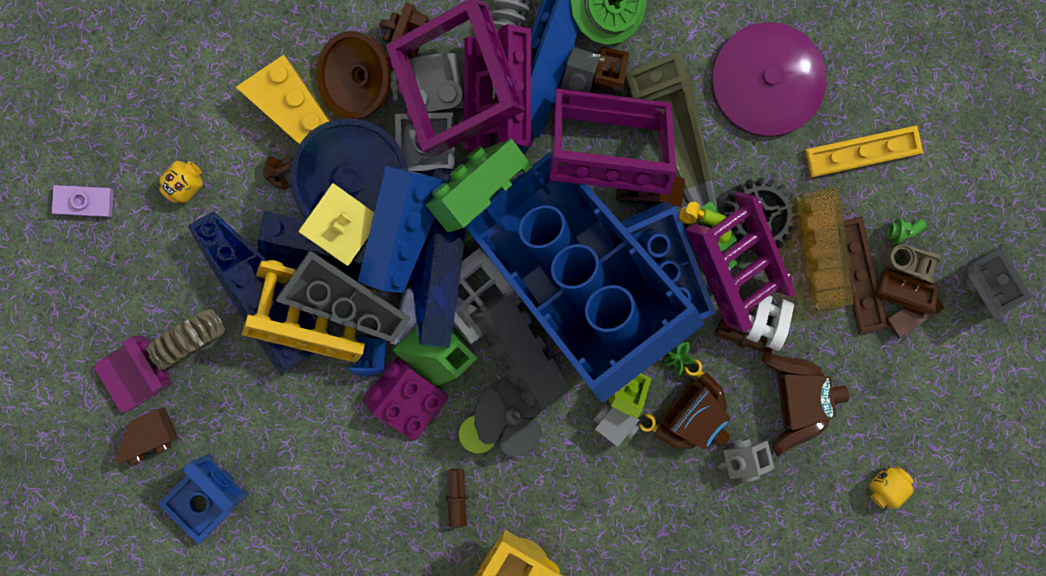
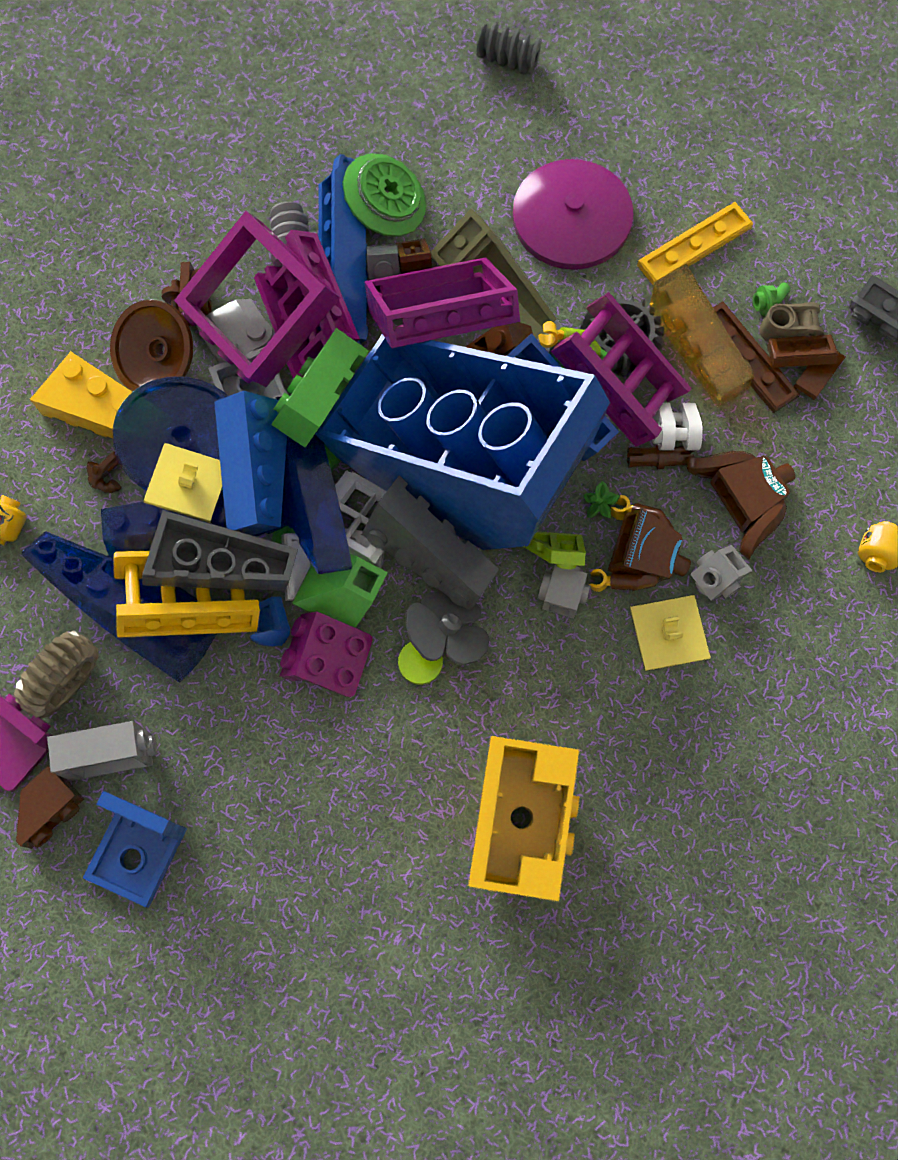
camera: 25 degrees left, 15 degrees down
(201, 415) = (101, 751): none -> light grey window
(456, 497) = (423, 739): reddish brown axle -> none
(687, 486) = (670, 632): none -> light yellow piece

